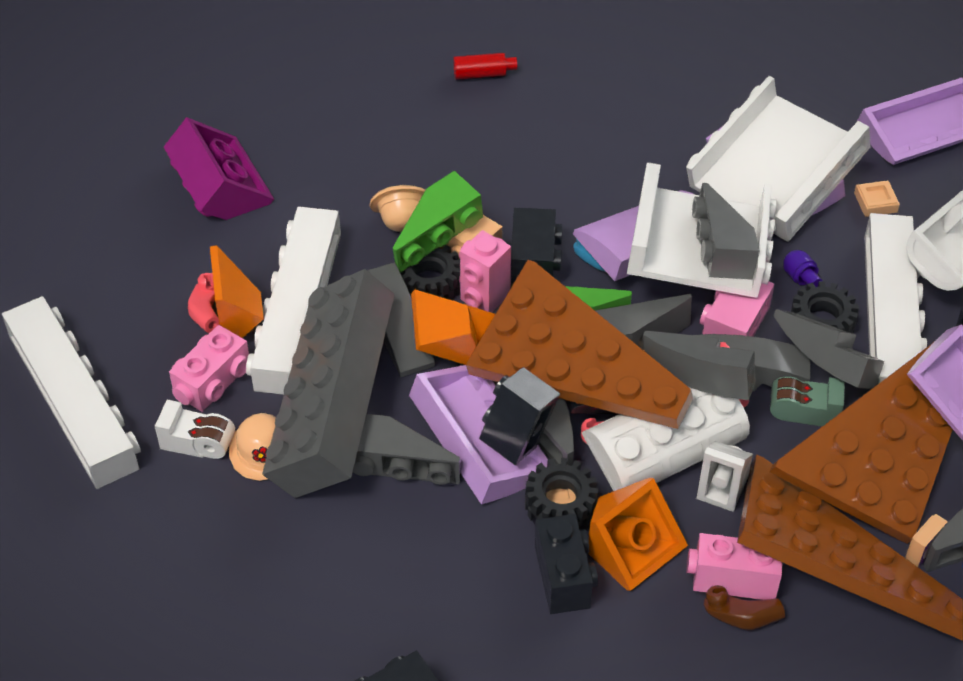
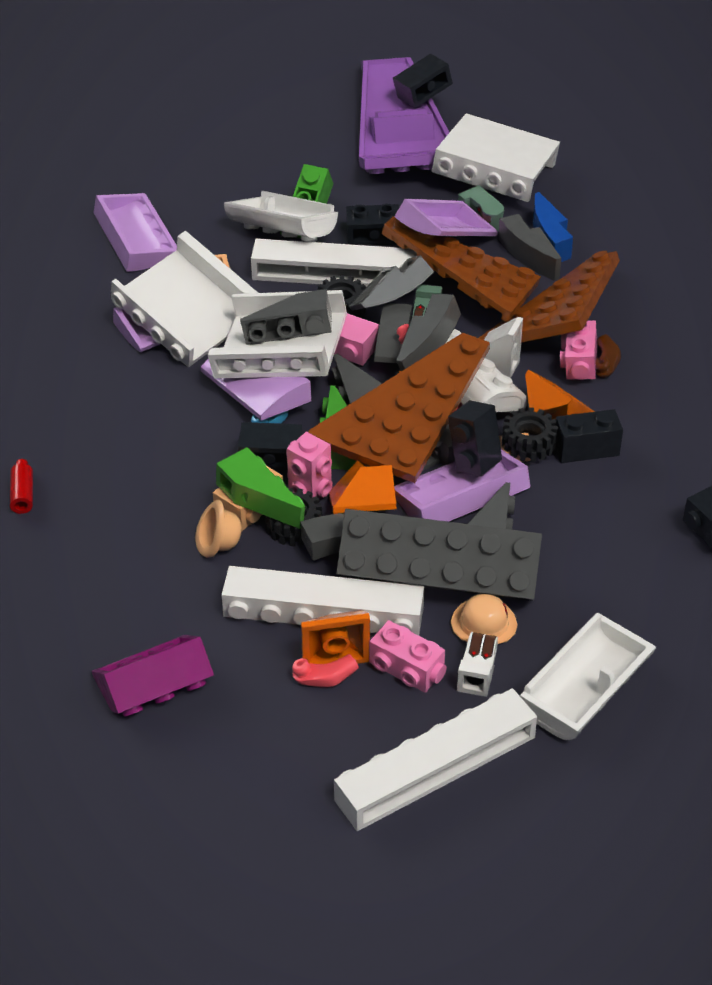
camera: 90 degrees left, 5 degrees down
(152, 526) = (585, 676): none -> white container
(923, 539) = (545, 267): light nougat tile -> none

